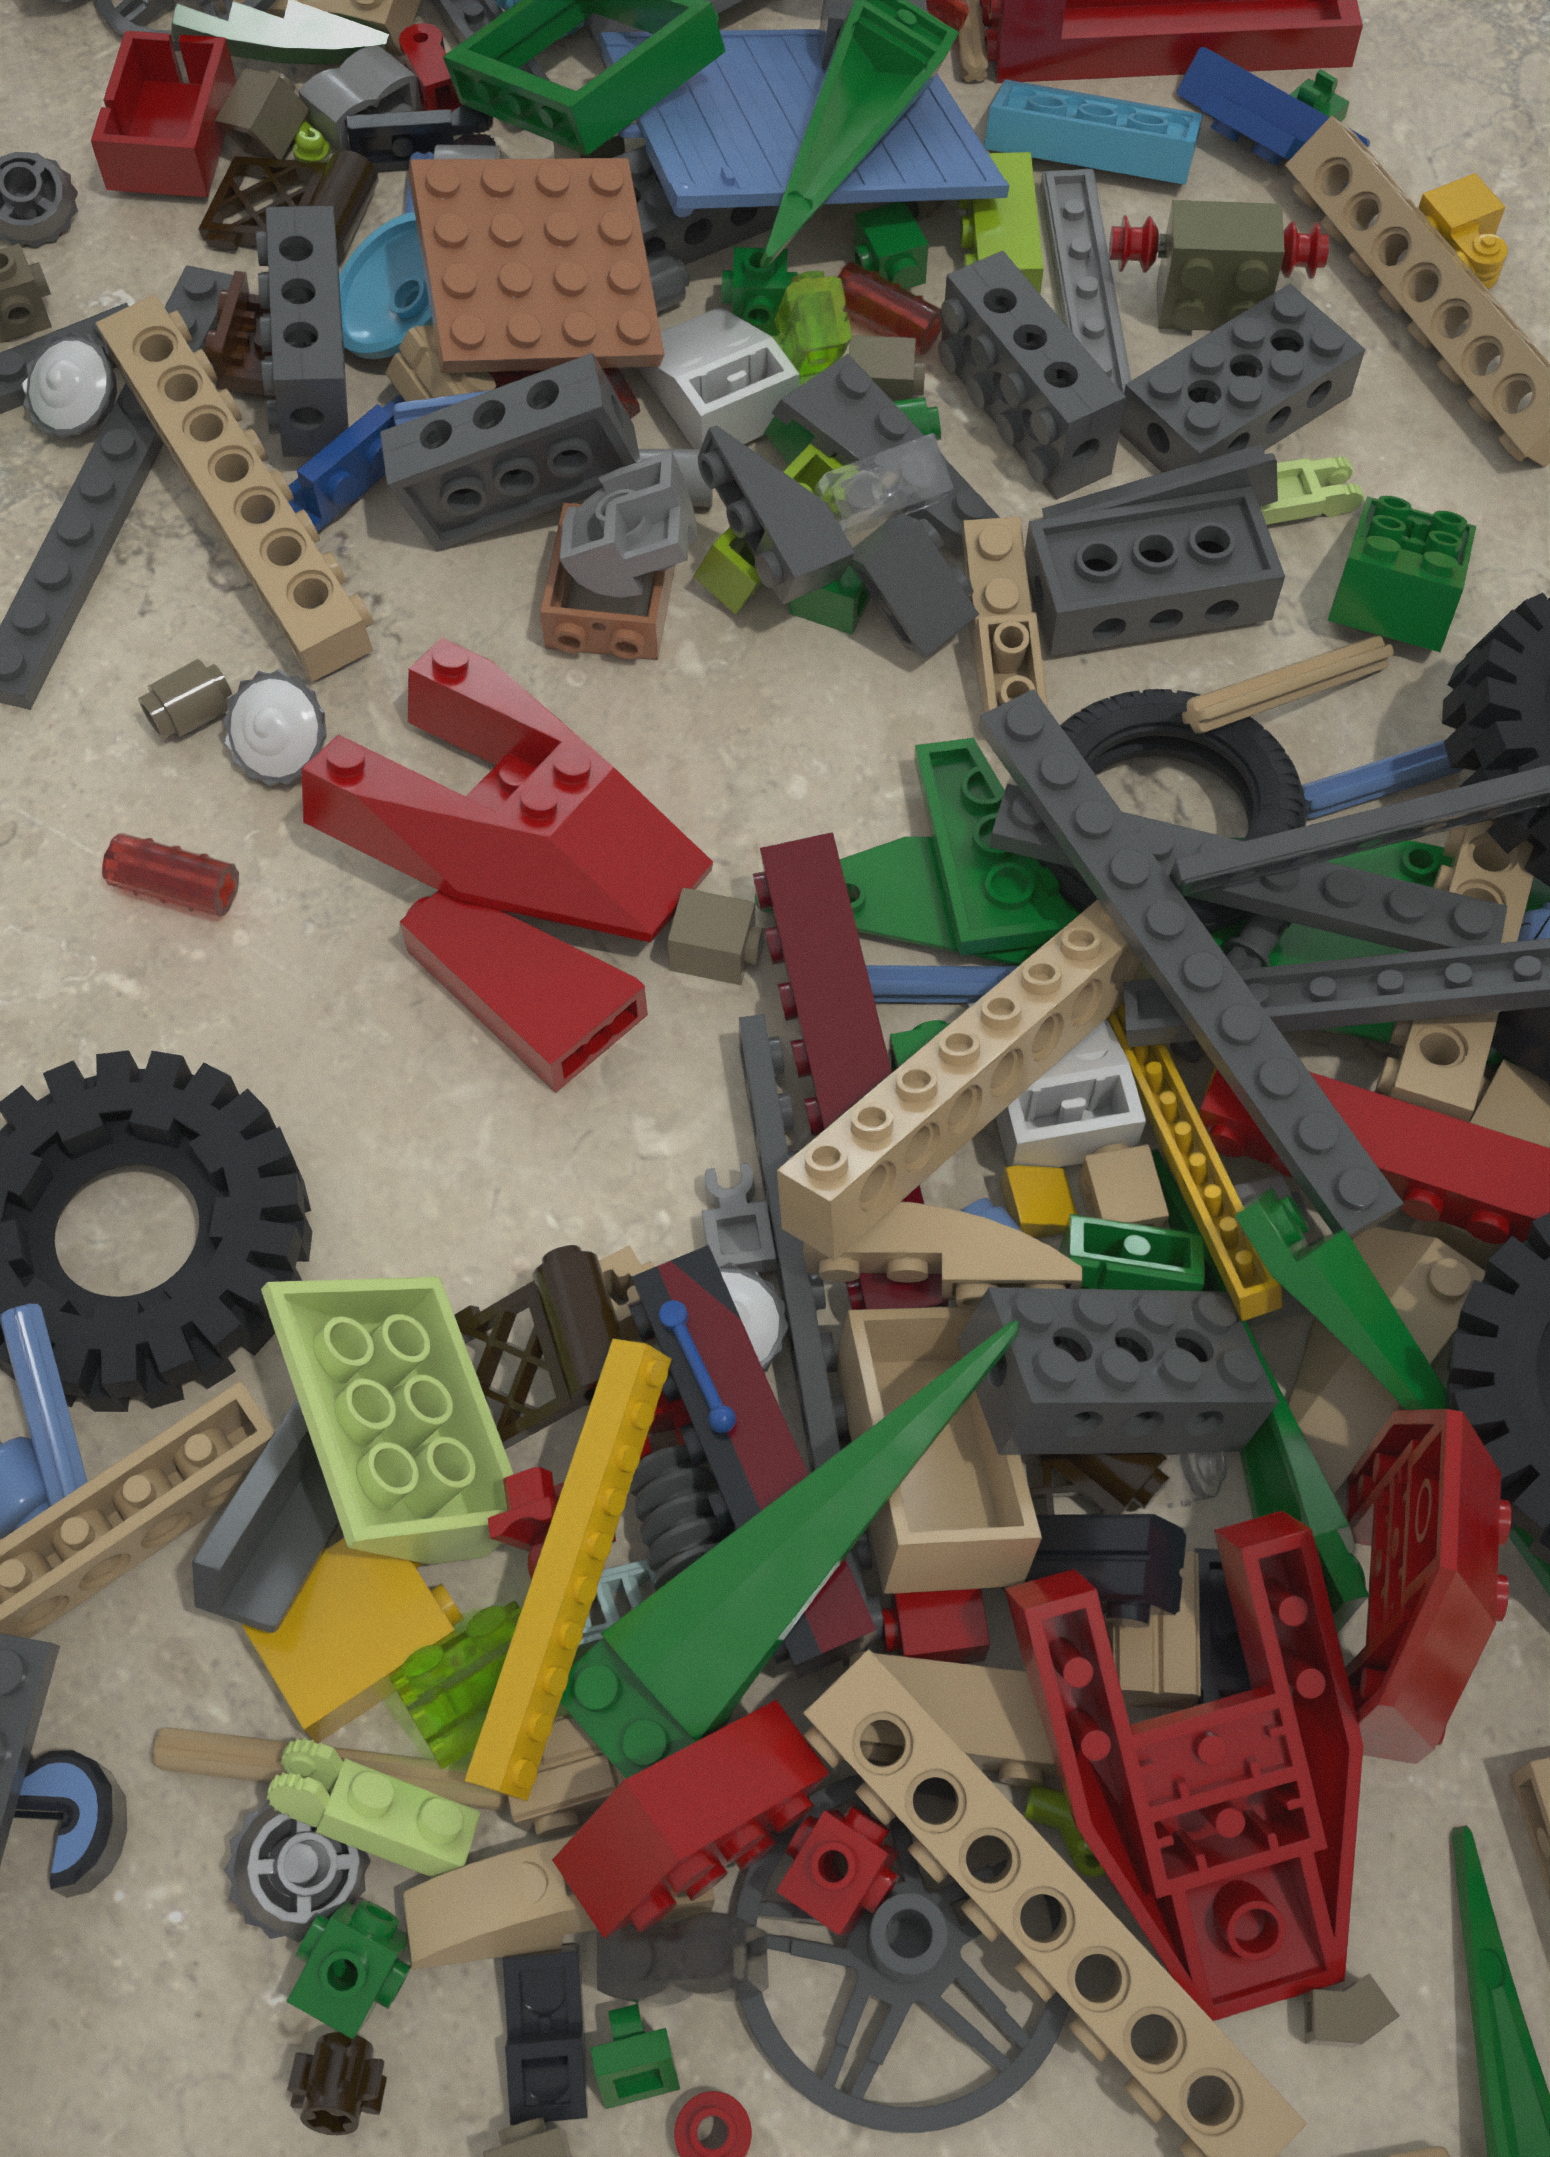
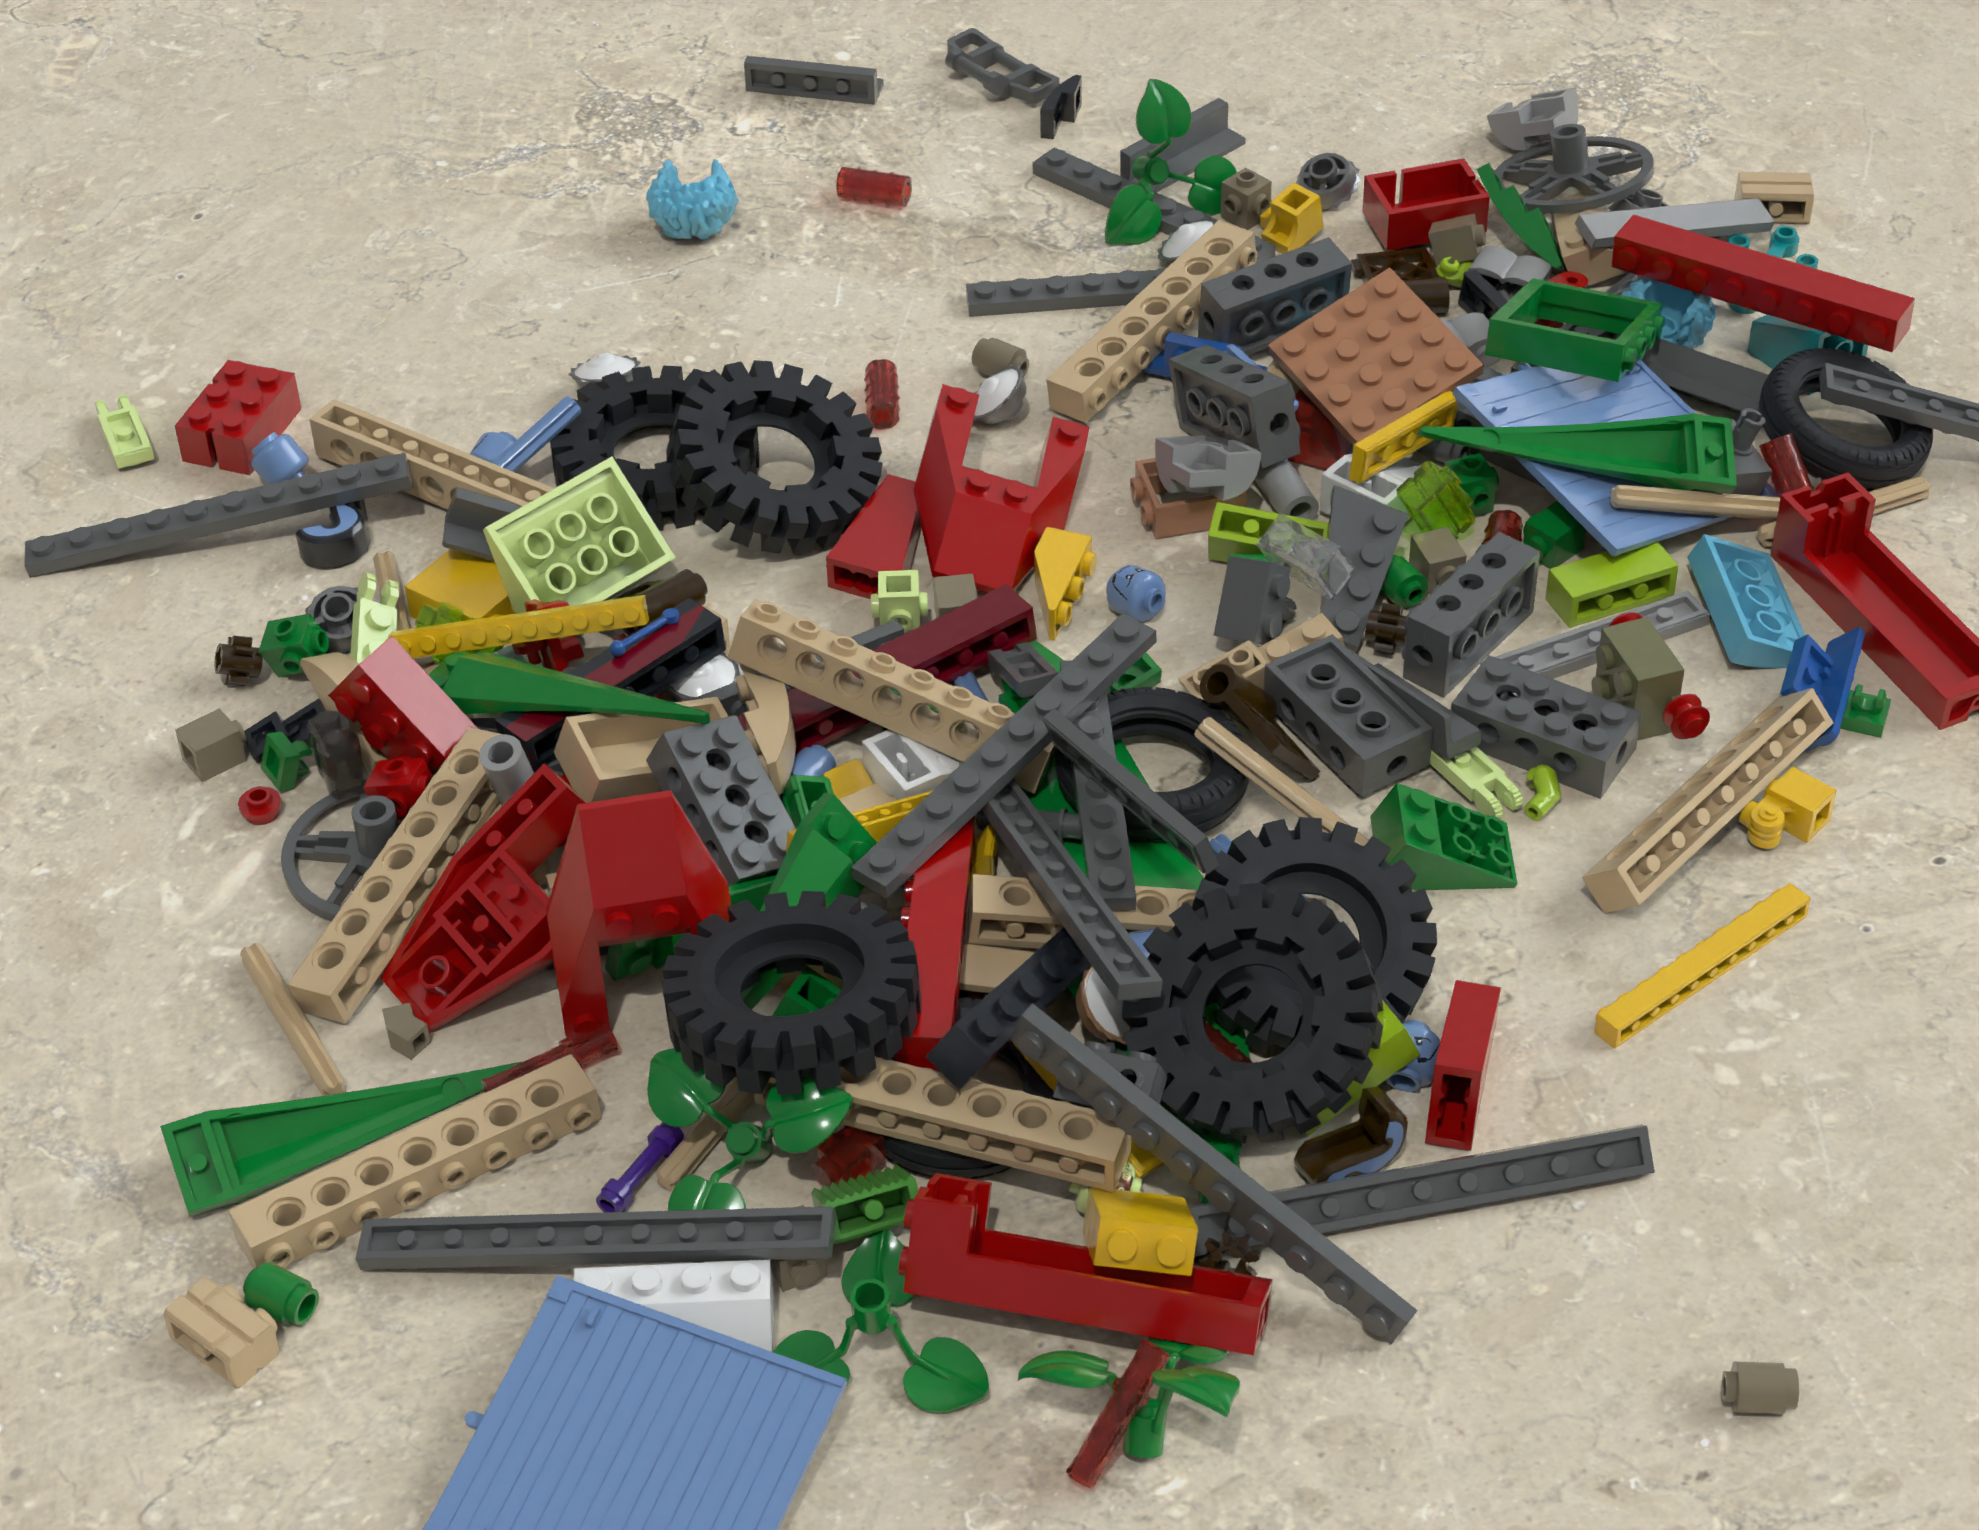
camera: 70 degrees right, 20 degrees down
(88, 261) = (1292, 218): none -> yellow brick
(196, 1102) = (804, 513): none -> black tyre
(687, 1003) = (902, 606): none -> yellowish green brick
(695, 304) = (1400, 437): none -> yellow tile
(712, 793) = (1061, 567): none -> yellow slope
(783, 523) = (1243, 514): dark grey slope -> none
(790, 714) = (1136, 592): none -> medium blue head
(937, 98) = (1694, 502): none -> tan axle
(939, 891) = (1021, 669): none -> dark grey plate
(959, 1675) = (505, 765): none -> light grey brick
(994, 469) = (1386, 628): none -> dark brown gear
(1106, 669) = (1255, 711): none -> dark brown piece
(1339, 435) = (1547, 788): none -> lime arm
(1491, 1807) = (583, 1048): none -> clear red pin

